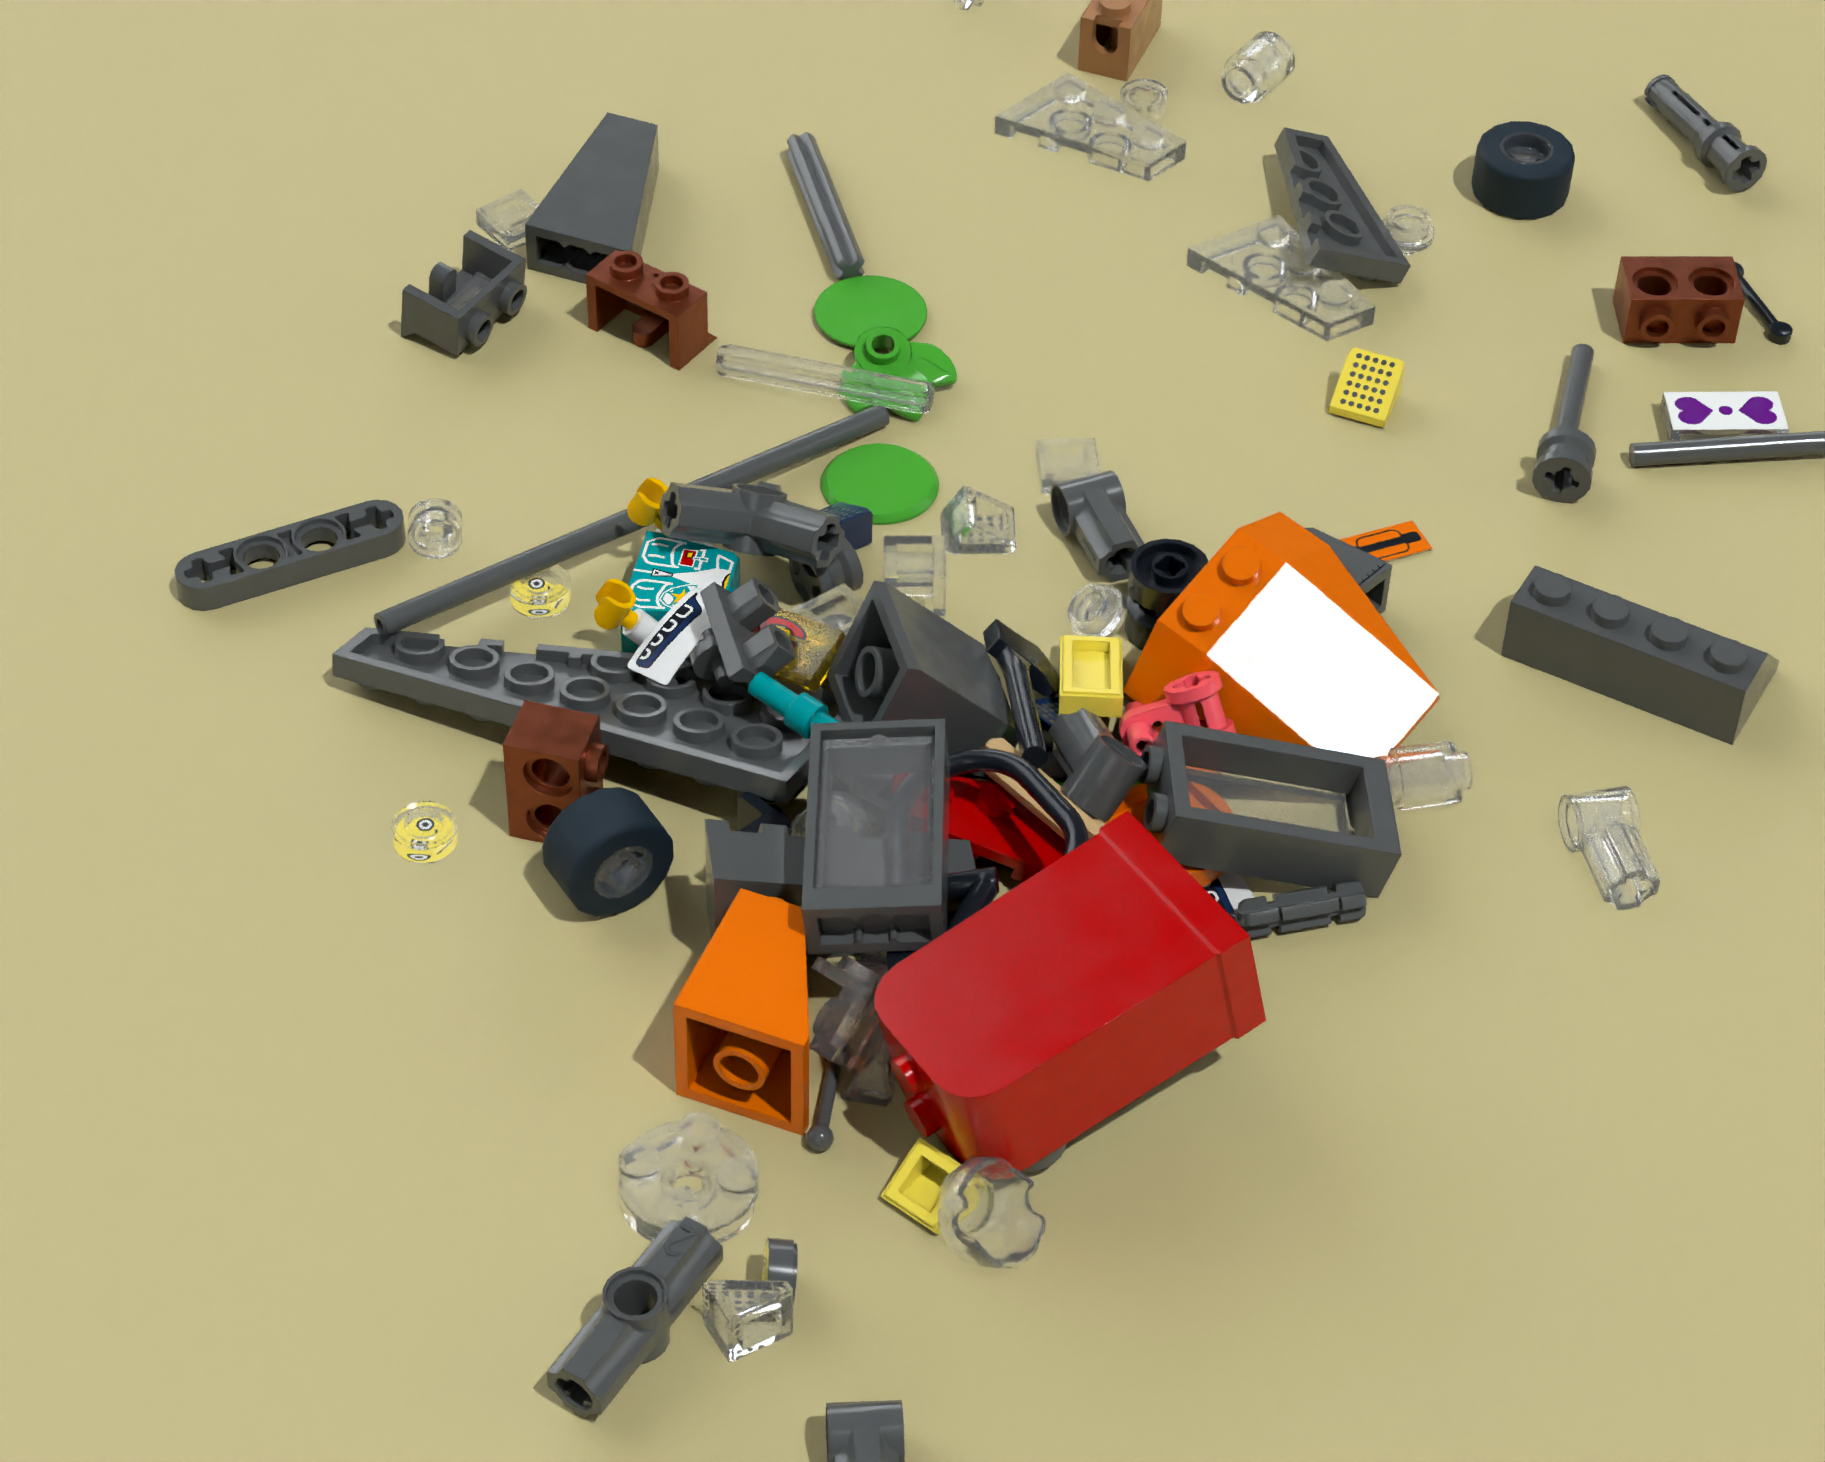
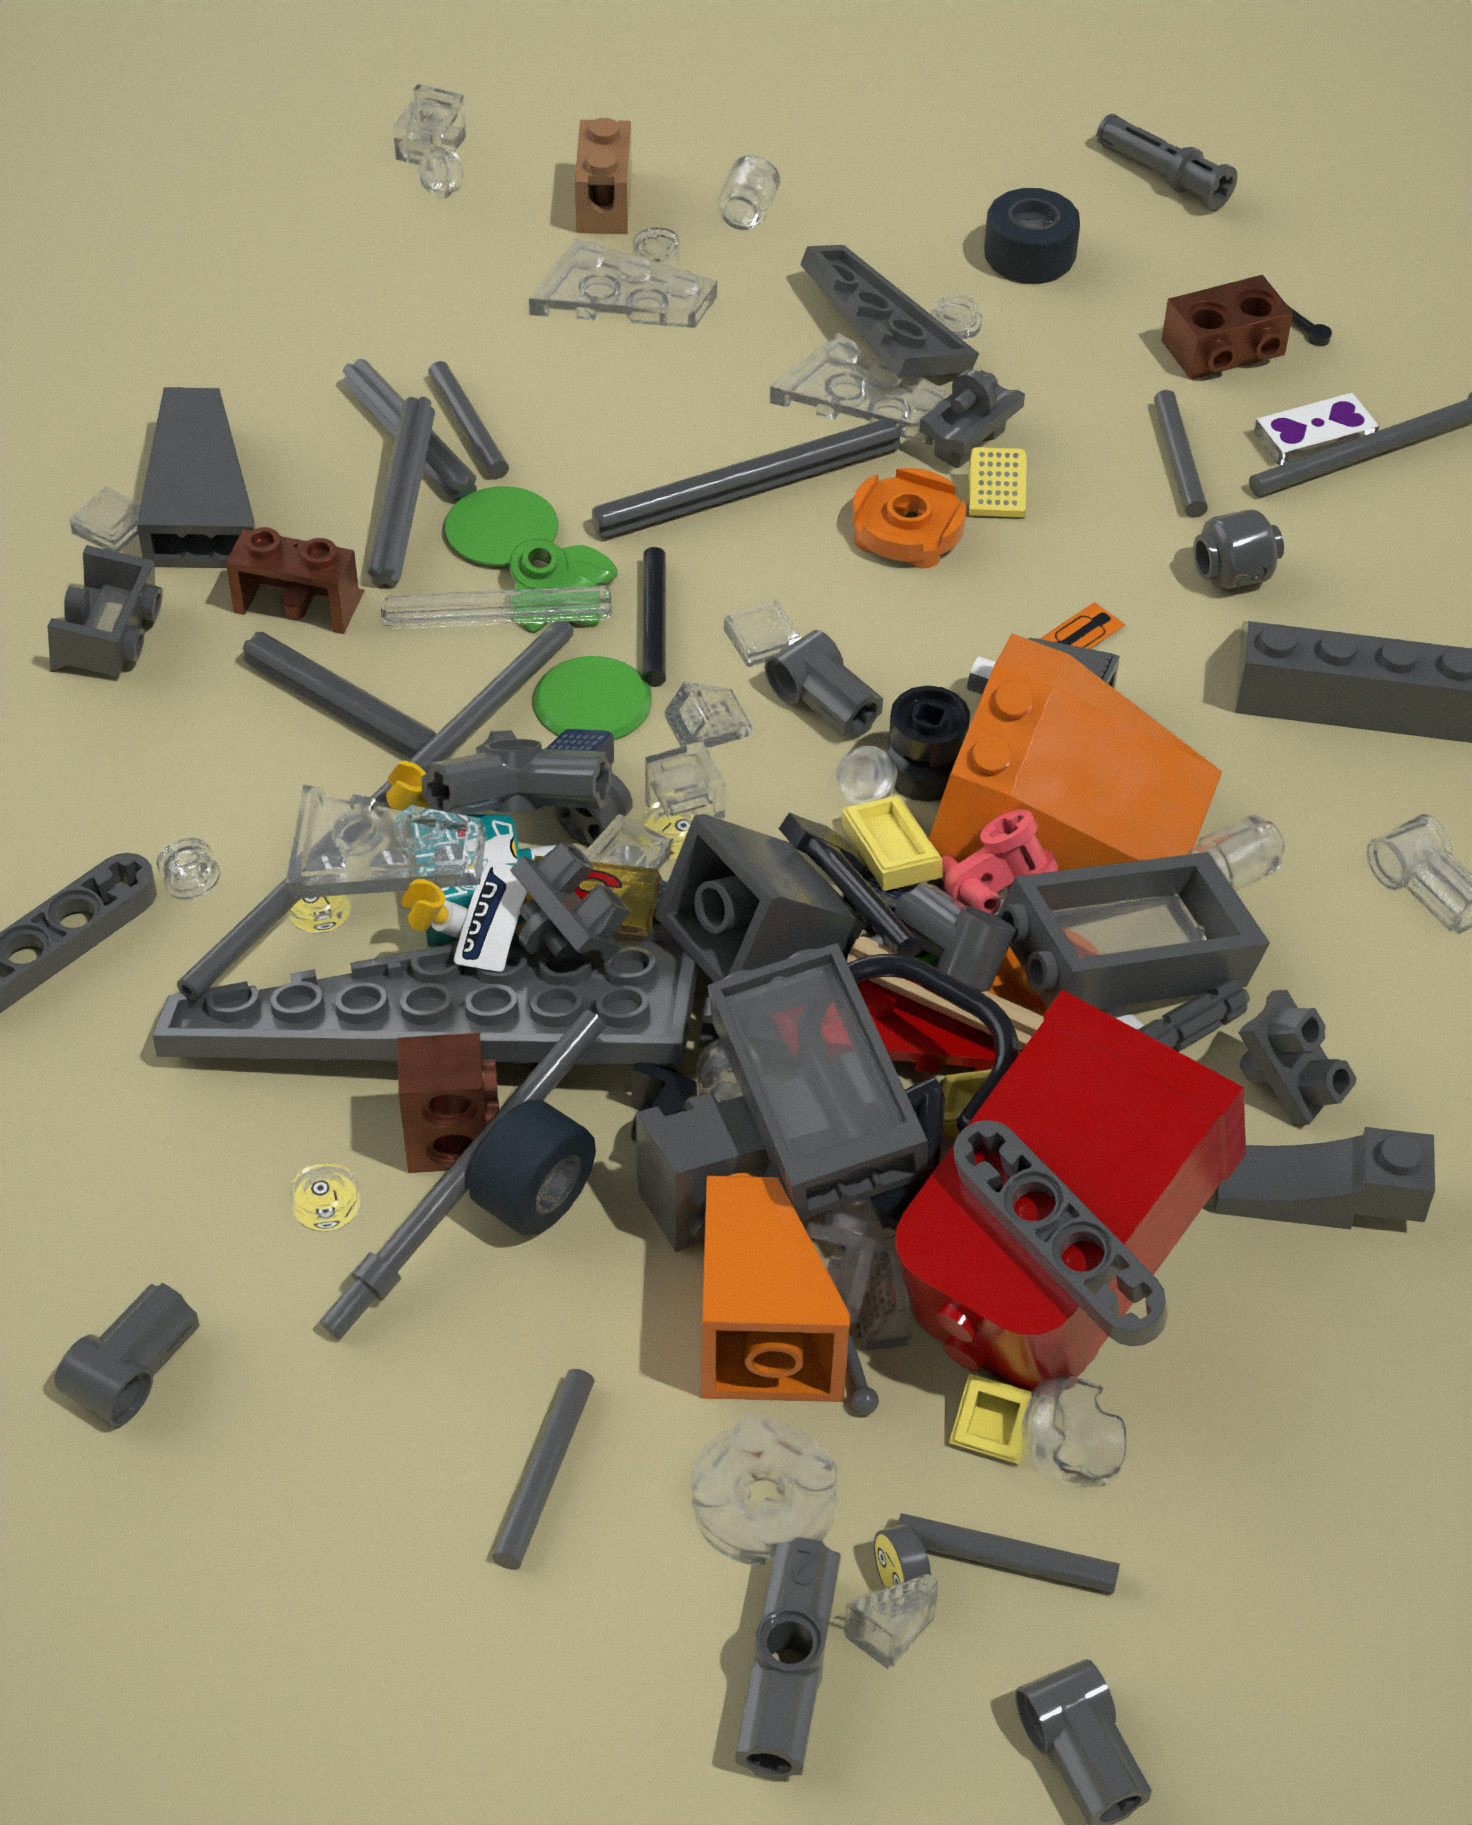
camera: 20 degrees left, 5 degrees up
(174, 915) = (116, 1370): none -> dark grey piece
(436, 904) = (379, 1272): none -> dark grey bar
(504, 1106) = (543, 1469): none -> dark grey bar
(590, 543) = (377, 849): none -> clear wing
(641, 416) = (336, 694): none -> dark grey axle
(785, 256) = (401, 491): none -> dark grey axle
(797, 710) = (661, 966): teal bar -> none
(885, 211) = (468, 420): none -> dark grey bar
(887, 1302) = (1014, 1554): none -> dark grey bar
(972, 425) = (654, 617): none -> black bar
(1018, 1012) = (1066, 1225): none -> dark grey beam
(1125, 324) = (745, 478): none -> dark grey axle
(1237, 400) = (917, 540): none -> orange plate
(1356, 1082) = (1332, 1181): none -> dark grey slope
(1371, 961) = (1288, 1054): none -> dark grey hips
(1374, 314) = (970, 414): none -> dark grey hips
(1563, 449) = (1202, 501): dark grey wheel -> none
(1573, 504) = (1238, 549): none -> dark grey head

